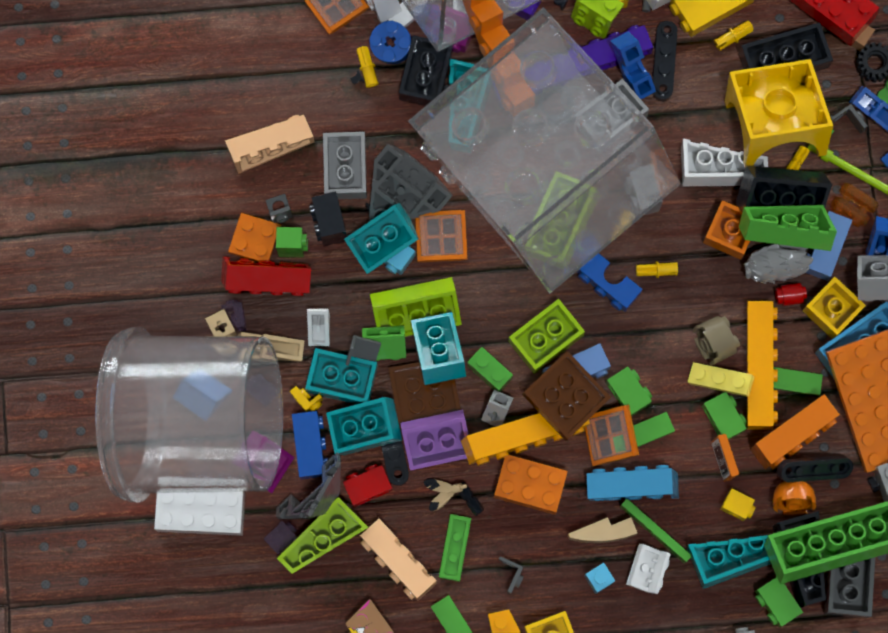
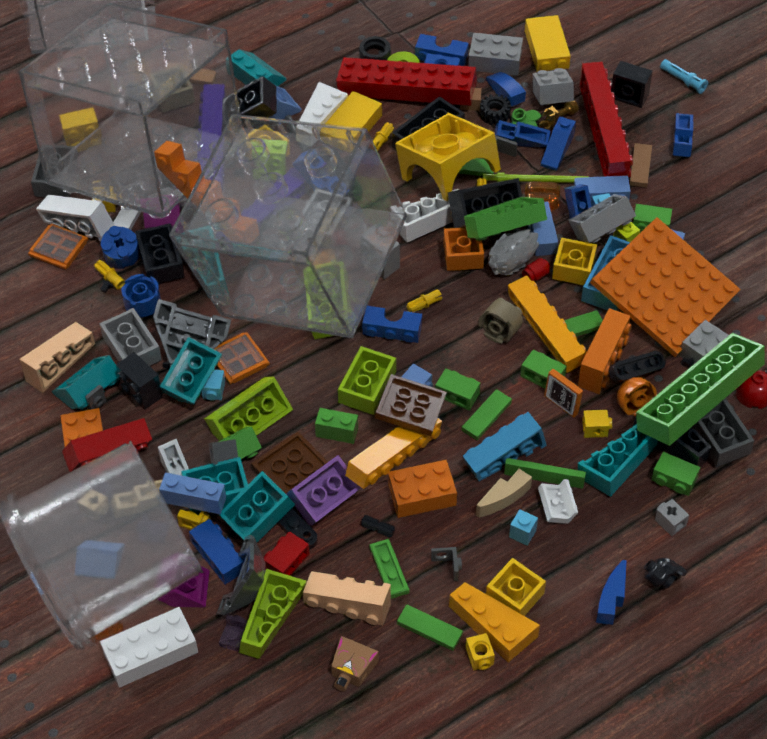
camera: 30 degrees left, 25 degrees down
(282, 188) = (97, 372): none -> teal slope
(291, 242) = (115, 408): bright green brick -> none
(310, 384) = (193, 493): none -> medium blue brick
(372, 109) = (141, 294): none -> blue brick
(438, 348) = (285, 424): teal brick -> none
(446, 489) = (355, 528): tan piece -> none
(495, 412) = (358, 440): light grey brick -> none
(611, 436) = (464, 423): clear piece -> none
(721, 379) = (523, 345): light yellow plate -> none

